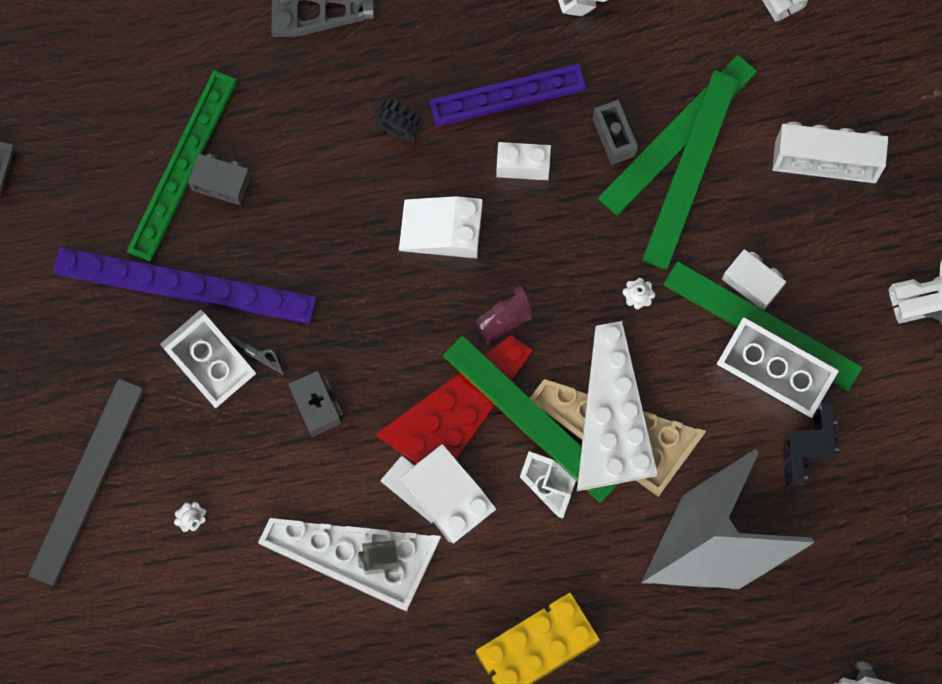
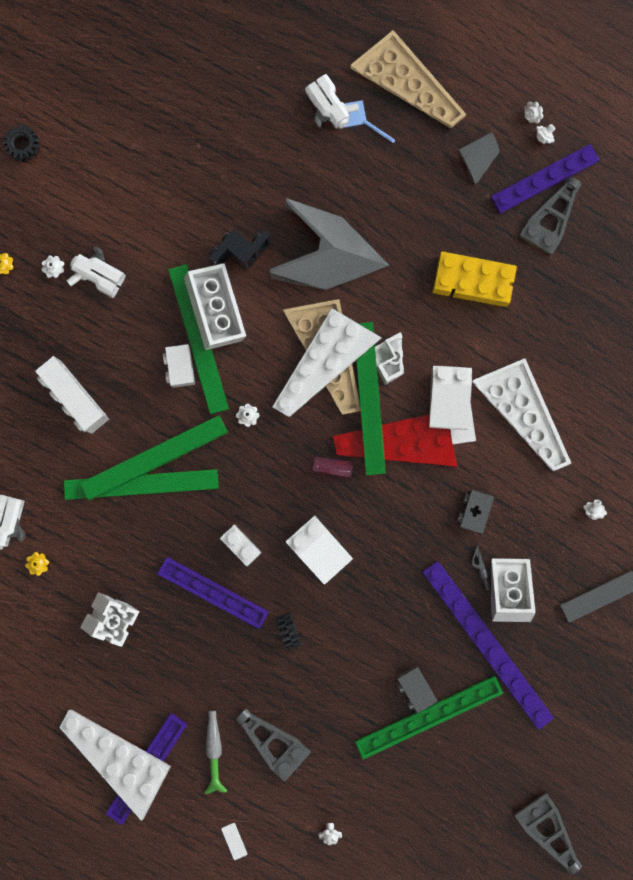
camera: 140 degrees left, 10 degrees up
(378, 557) = (517, 395): clear smoke brick -> none
(614, 132) = (176, 515): dark grey brick -> none

